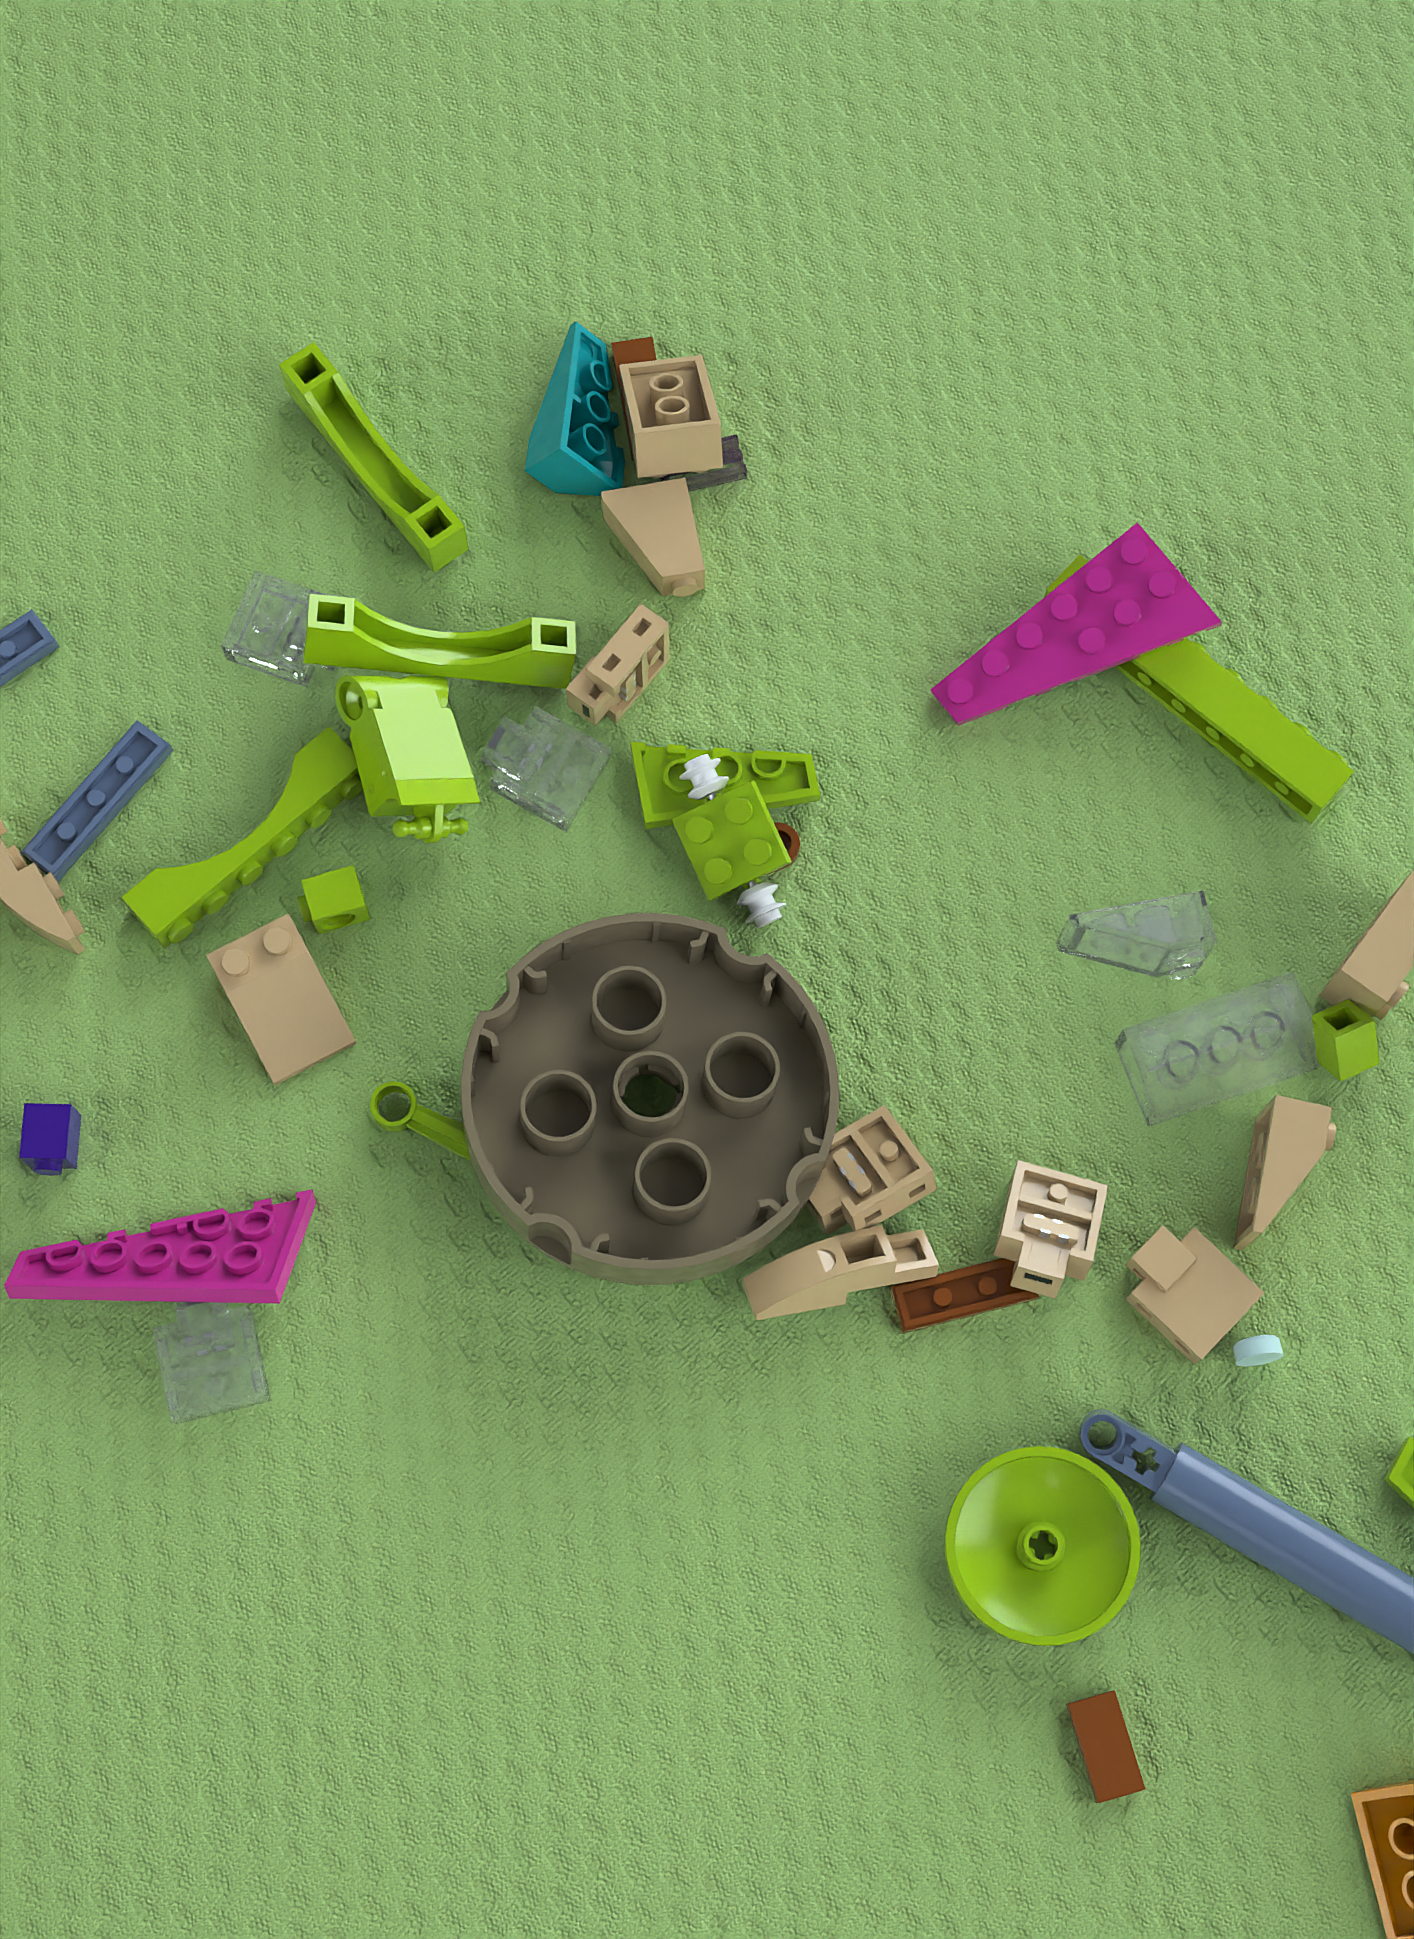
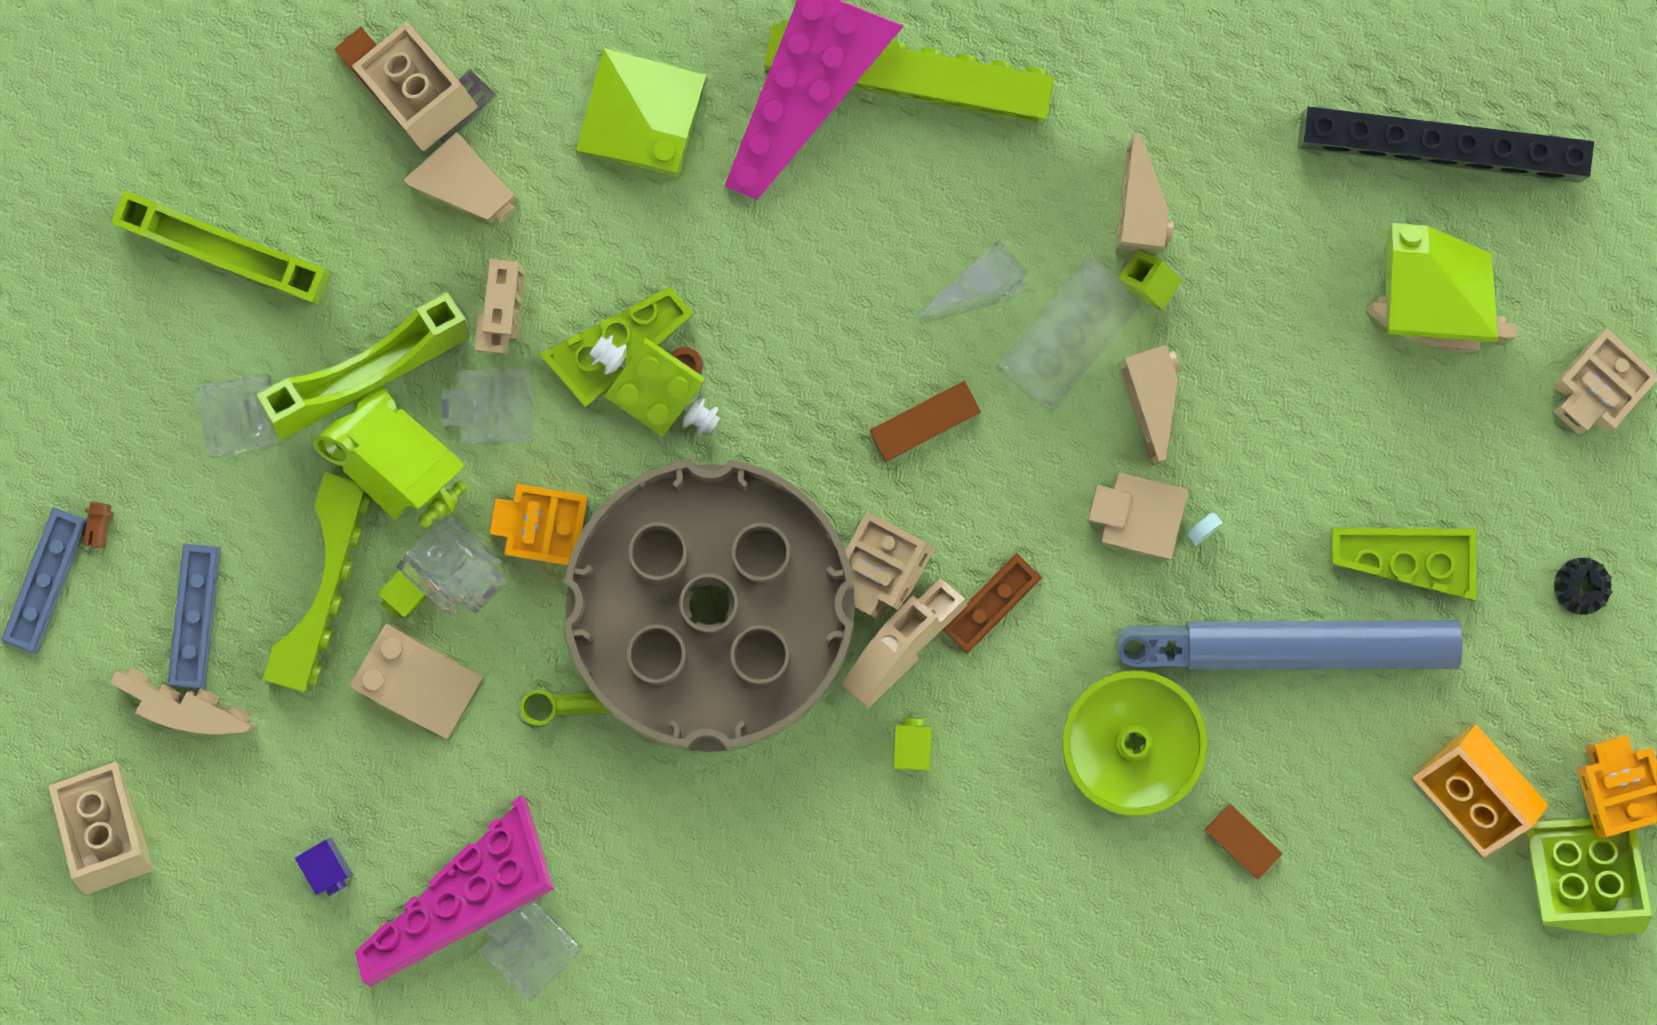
camera: 25 degrees left, 15 degrees up
(63, 651) = (97, 524): none -> dark orange pin
(397, 899) = (453, 567): none -> clear piece
(517, 908) = (539, 523): none -> light orange piece
(573, 433) = (351, 137): teal wedge -> none
(781, 1395) = (912, 745): none -> lime brick
(886, 576) = (641, 113): none -> lime slope
(1004, 1052) = (925, 421): none -> dark orange tile
(1049, 1227) = (1023, 529): tan piece -> none

